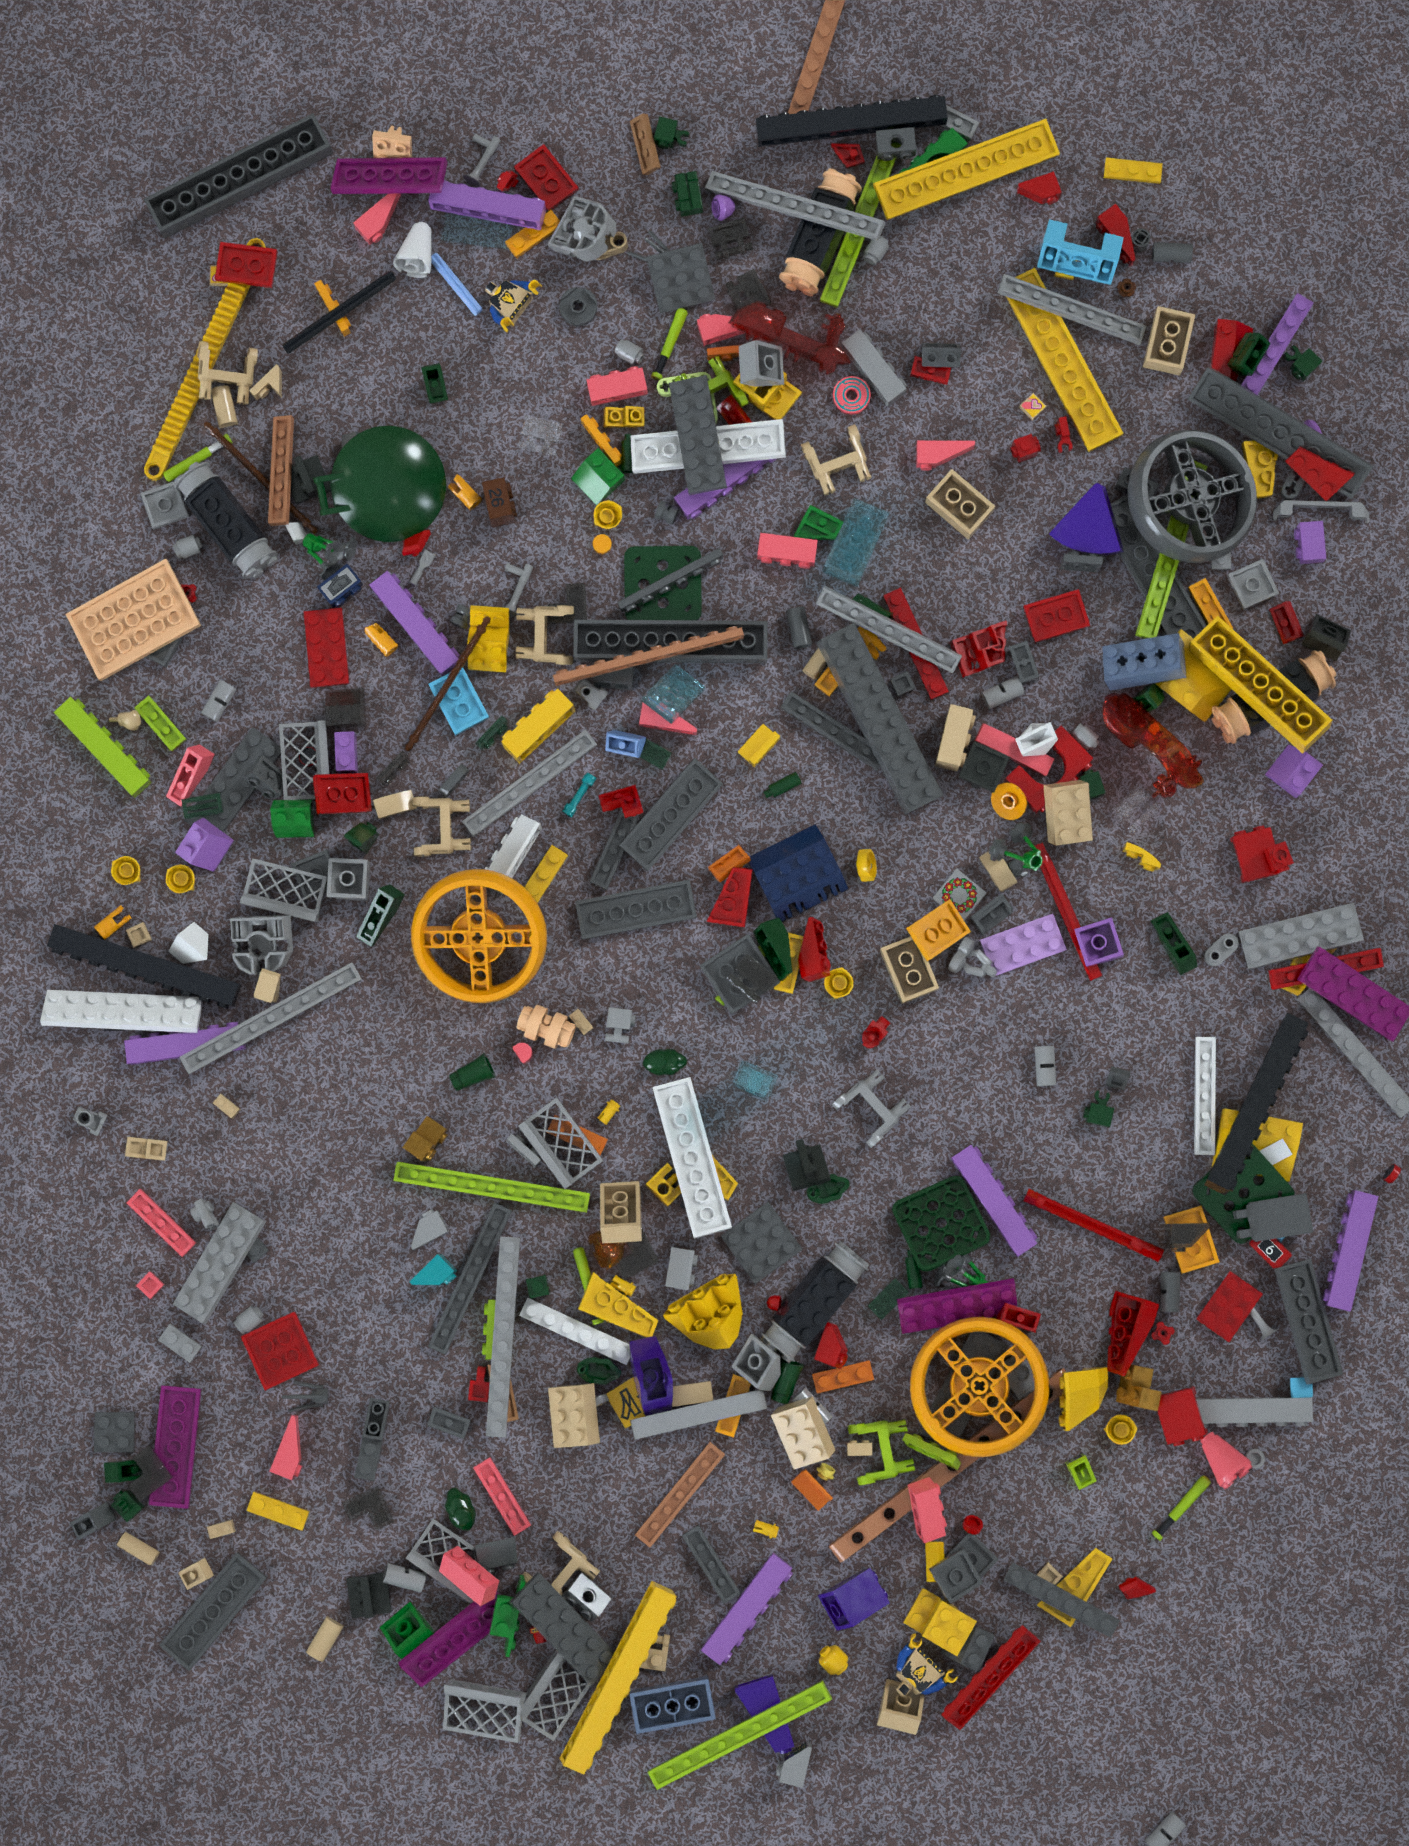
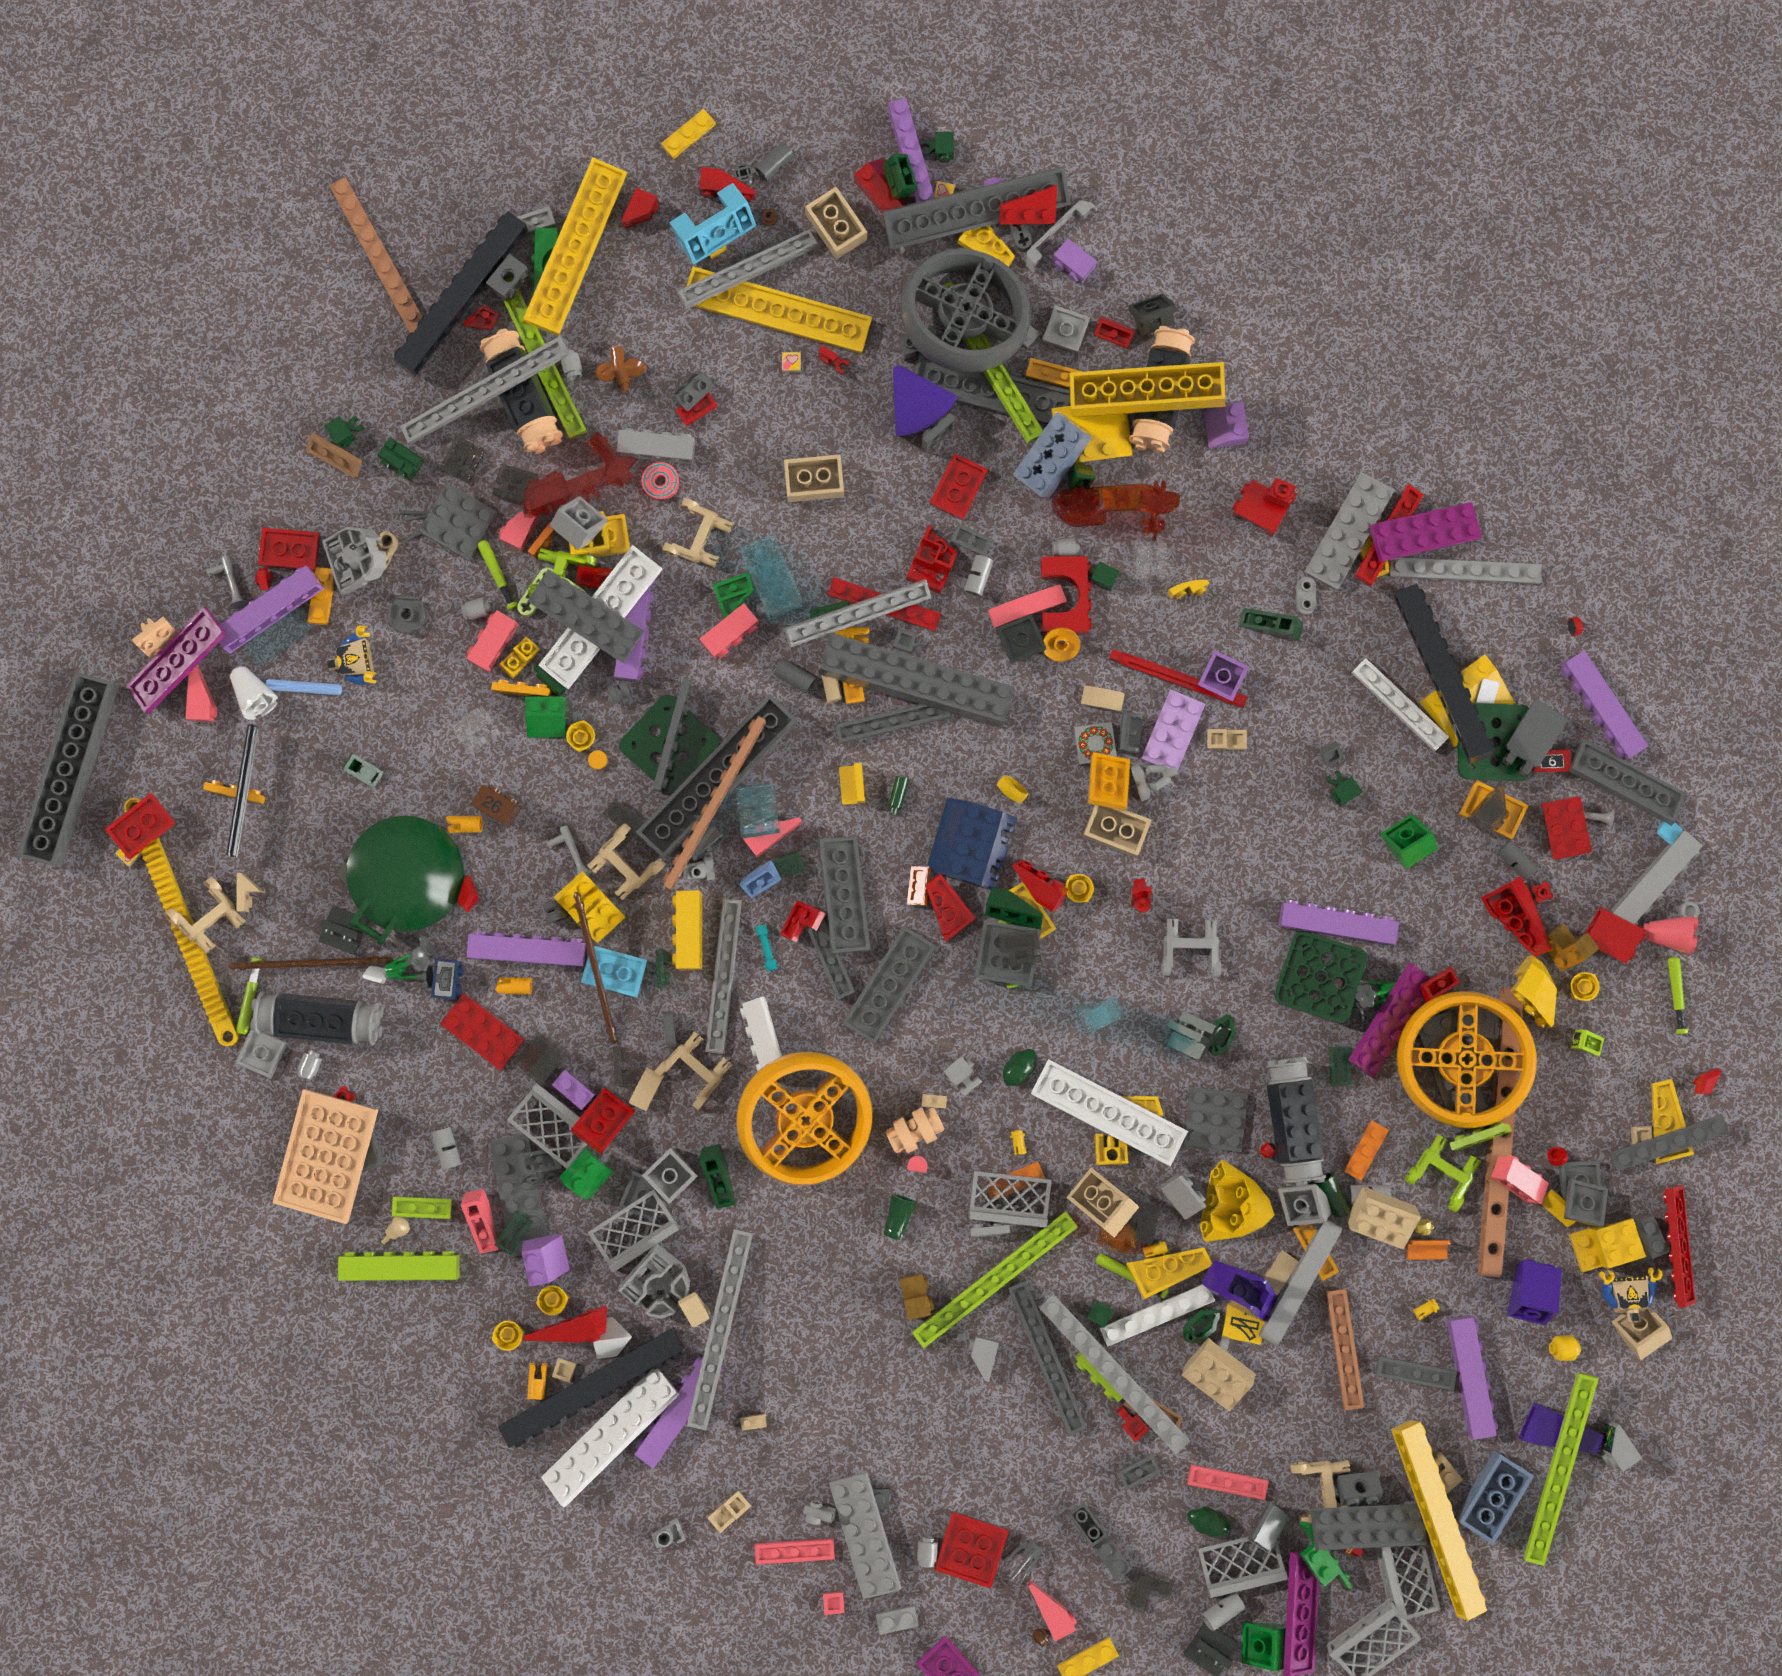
camera: 55 degrees left, 0 degrees up
(176, 916) = (582, 1328): none -> red wedge
(224, 406) = (230, 940): tan brick -> none
(263, 1460) = (1041, 1637): none -> reddish brown plate
(281, 470) = (319, 943): nougat plate -> none
(362, 836) = (648, 1135): dark green slope -> none
(425, 562) = (488, 900): light grey piece -> none
(436, 1272) = (1021, 1380): teal slope -> none
(469, 1576) = (1268, 1563): coral brick -> none
(545, 872) = (800, 1025): yellow plate -> none
(722, 207) = (434, 443): medium lavender cone -> none
(832, 1347) = (1339, 1139): red slope -> none
(859, 1448) = (1429, 1187): tan piece -> none
(907, 287) = (620, 369): none -> dark orange plant
(913, 1272) = (1337, 1029): dark green cylinder -> none
(935, 453) = (759, 461): coral slope -> none
(955, 738) = (980, 639): tan brick -> none
(1020, 863) = (1113, 677): dark grey plant -> none
(1025, 448) = (817, 394): red brick -> none
(1037, 739) = (1036, 582): white slope -> none
(1045, 1066) = (1275, 797): light grey pin -> none
(1055, 990) = (1227, 739): none -> tan slope
(1068, 812) = (1109, 610): tan brick -> none
(1107, 1197) = (1409, 841): none -> green slope
(1132, 1242) = (1456, 854): red piece -> none
(1272, 395) = (943, 189): none -> tile

